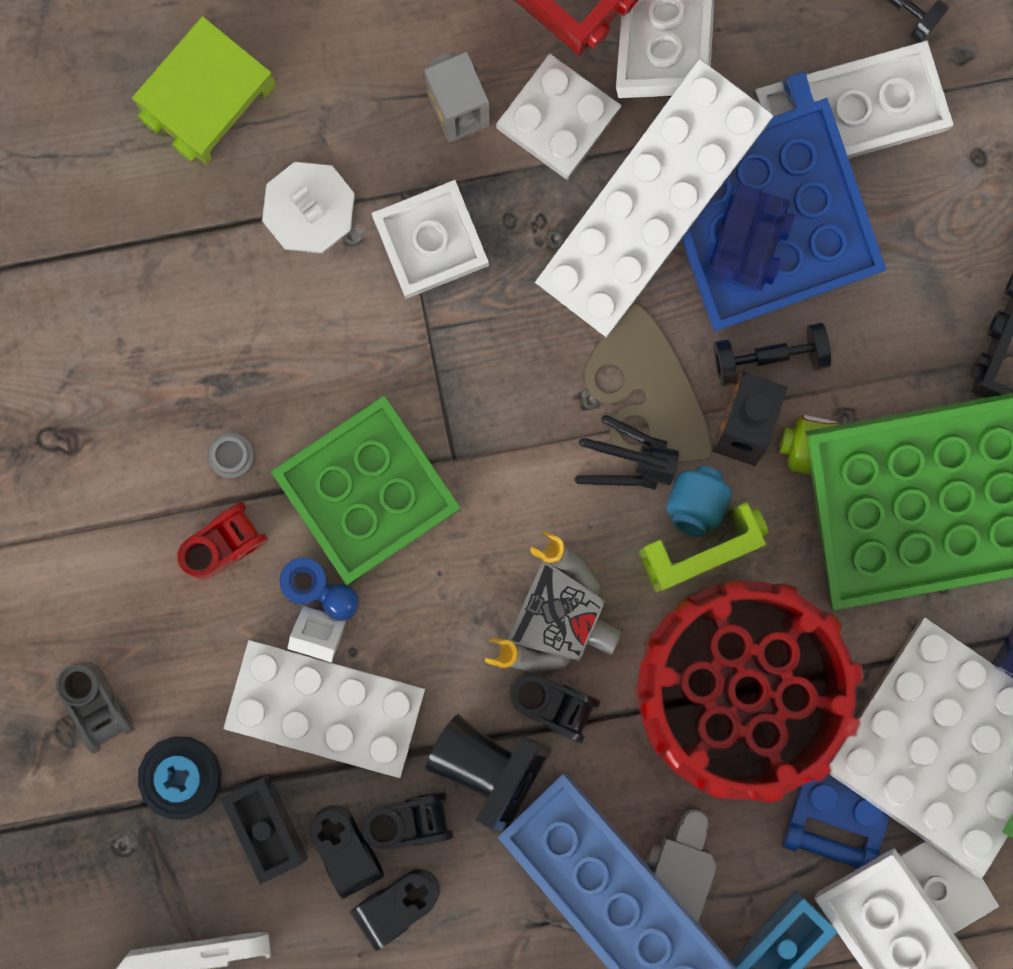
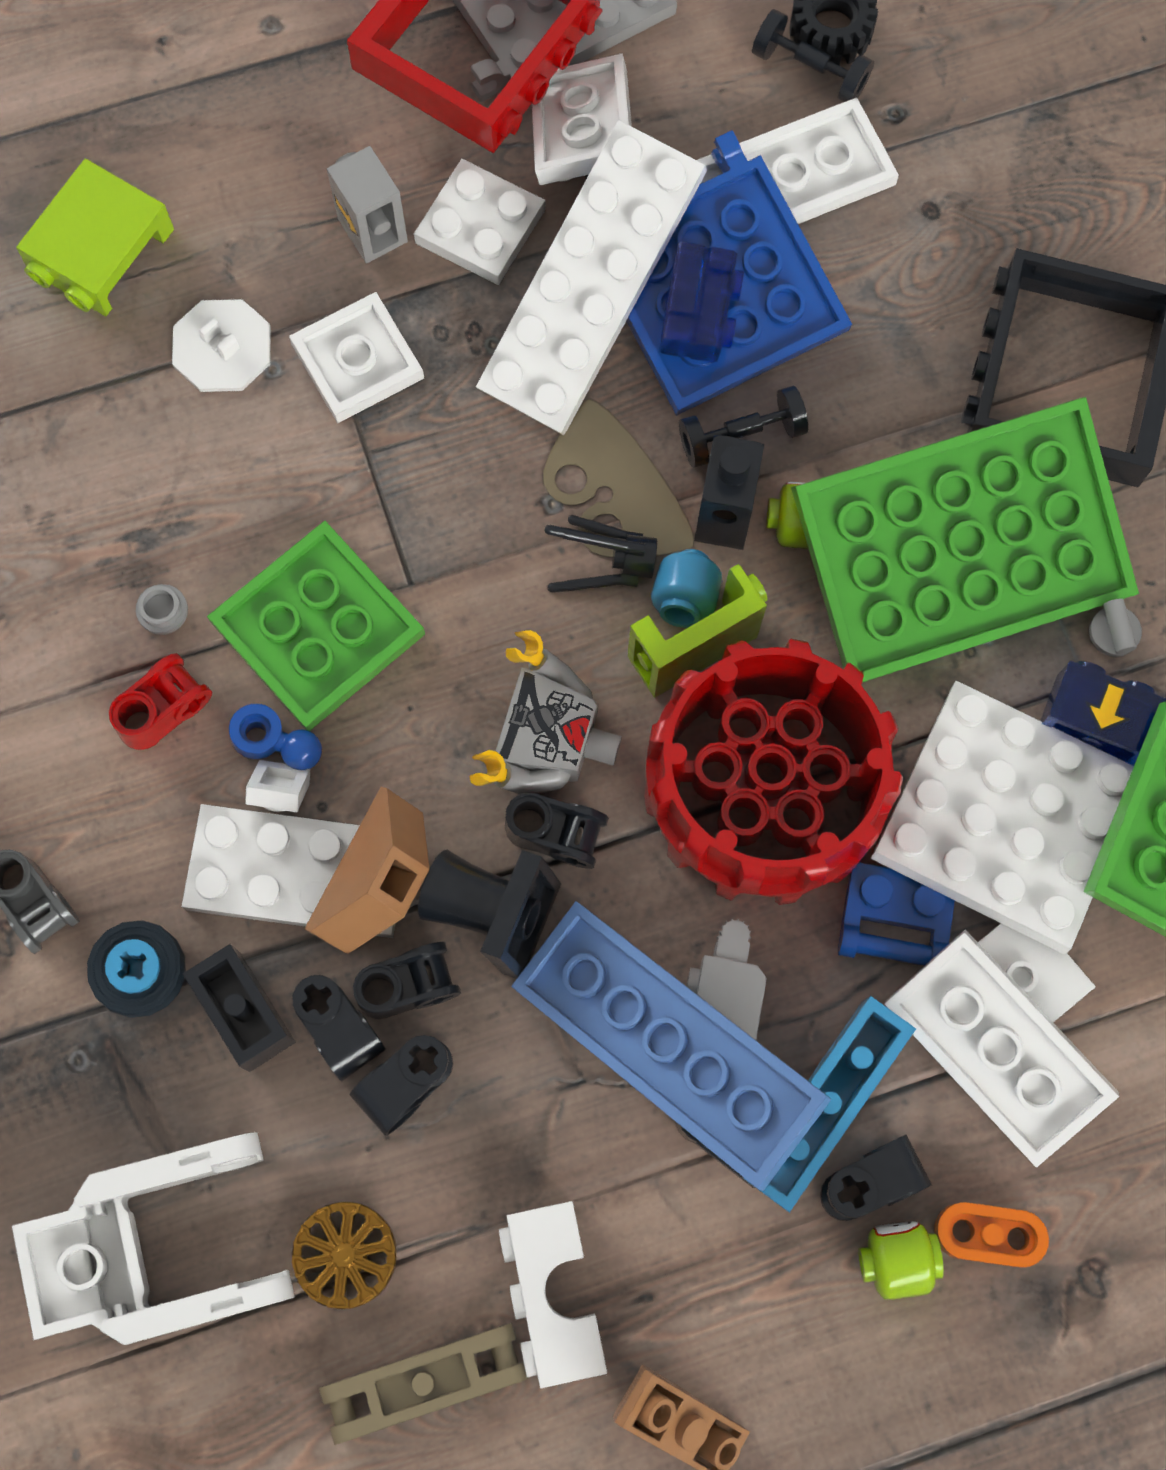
camera: 10 degrees left, 10 degrees down
(394, 732) = (375, 875): none -> medium nougat slope

